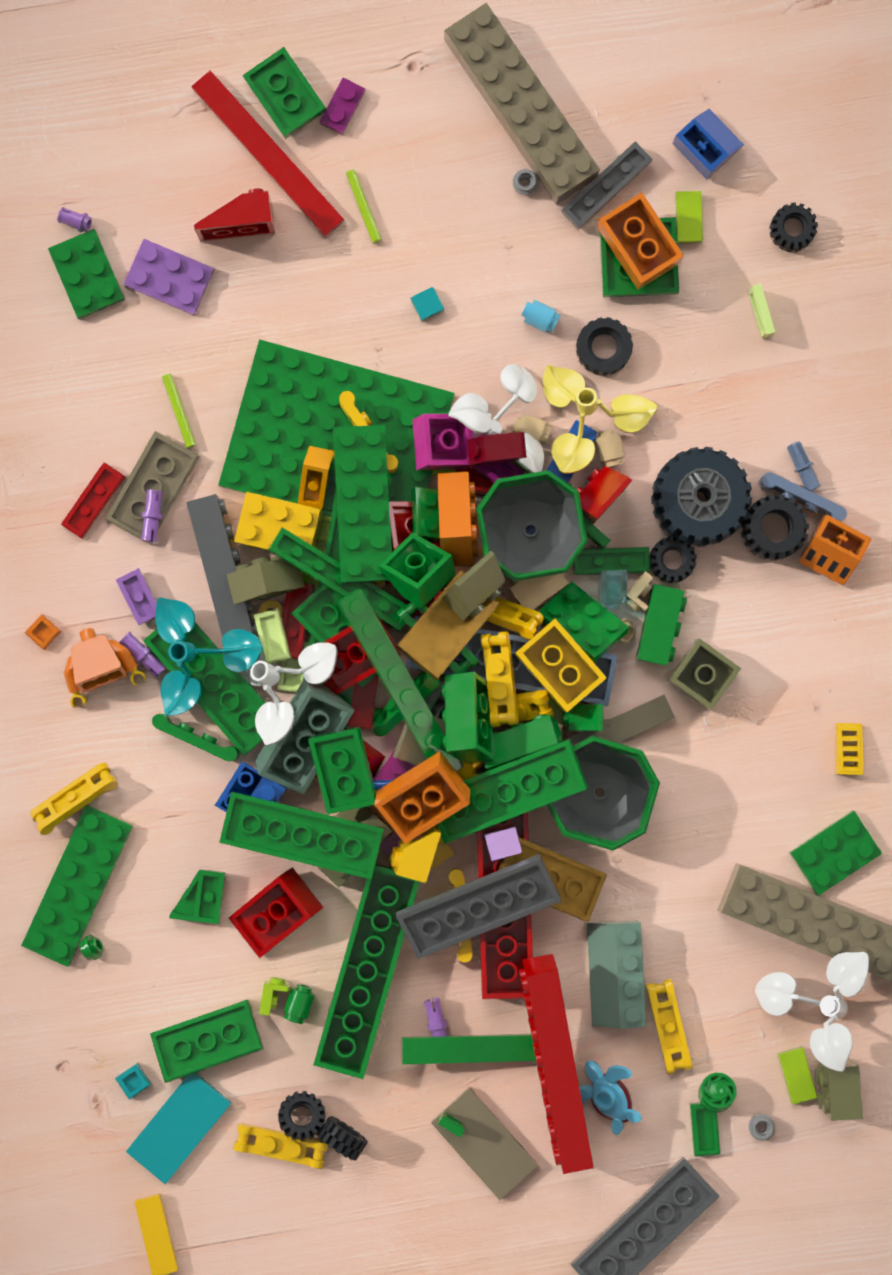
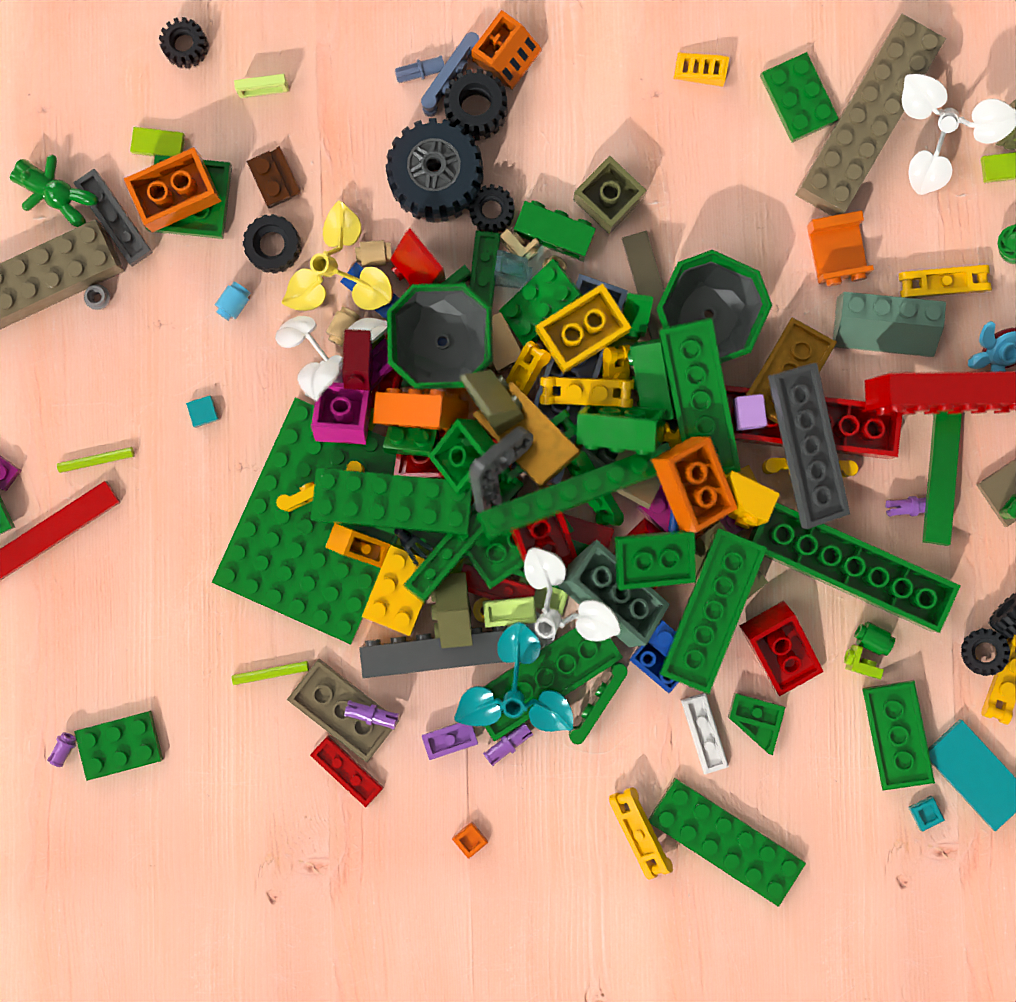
camera: 70 degrees left, 0 degrees up
(91, 947) = (790, 836): green plate -> none
(96, 664) = (510, 791): orange torso -> none
(168, 277) = (135, 663): medium lavender plate -> none
(181, 848) = (704, 733): none -> white tile
(242, 217) = (86, 583): red slope -> none
(326, 526) = (409, 541): none -> black piece
(405, 590) = (487, 467): none -> dark grey beam
(622, 125) = (54, 192): none -> green animal
(672, 337) = (273, 177): none -> reddish brown plate
(686, 914) = (838, 248): none -> orange panel
(707, 143) = (87, 113): blue slope -> none

